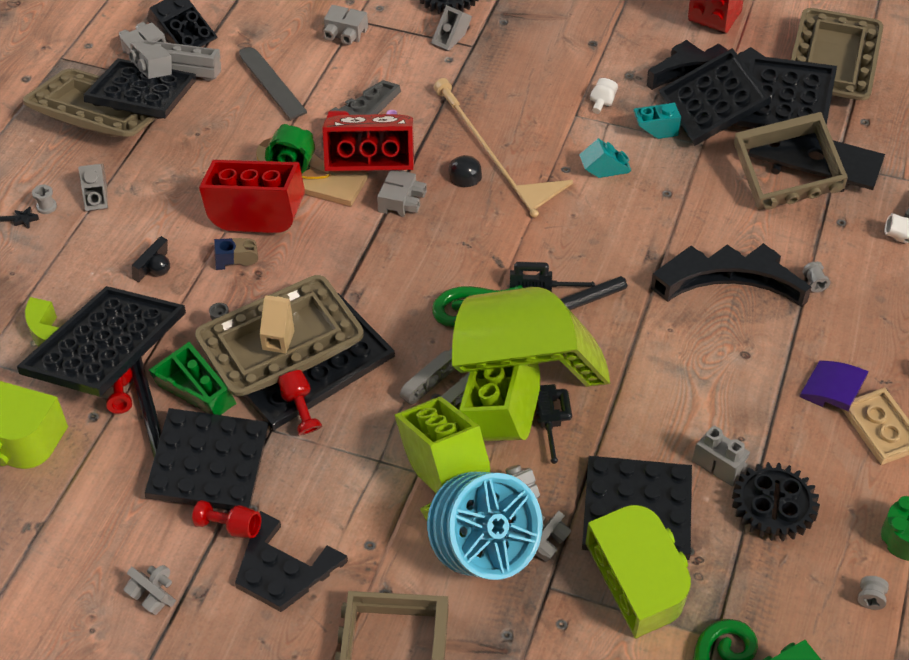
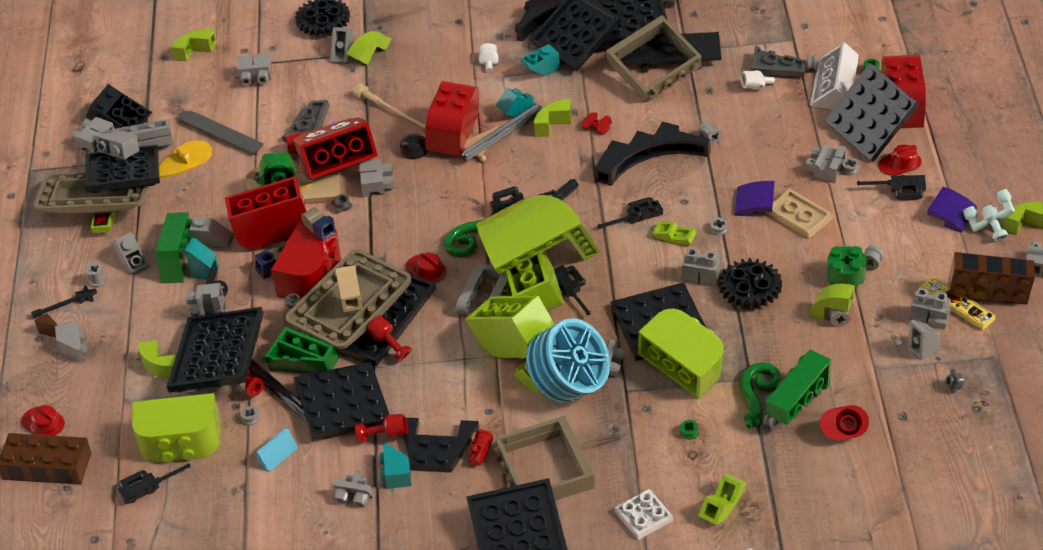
camera: 20 degrees left, 5 degrees down
(89, 141) = (102, 222): none -> slope
(94, 441) = (248, 411): none -> light grey bush
(98, 495) = (276, 450): none -> medium azure slope
(132, 275) = (208, 300): none -> light grey hips
(139, 196) = (171, 247): none -> green wedge
(156, 221) = (200, 259): none -> teal slope
(185, 193) = (210, 232): none -> light grey slope
(214, 580) = (396, 468): none -> teal slope
(219, 99) = (185, 158): none -> yellow shield
(264, 263) = (304, 261): none -> red brick
(292, 226) = (317, 221): none -> leg
(328, 594) = (480, 447): none -> red hinge
(349, 210) = (341, 203): none -> dark grey plate
(399, 326) = (427, 266): none -> red piece
(474, 36) = (366, 45): none -> lime brick
(518, 152) = (451, 118): none -> red brick
(570, 189) = (500, 133): none -> axle
(641, 187) = (553, 113): none -> lime brick
(679, 350) = (637, 213): none -> black piece
(690, 222) = (592, 122): none -> red piece
(708, 391) = (671, 233): none -> lime slope
(765, 406) = (714, 226): none -> light grey bush
(874, 569) = (833, 296): none -> lime brick

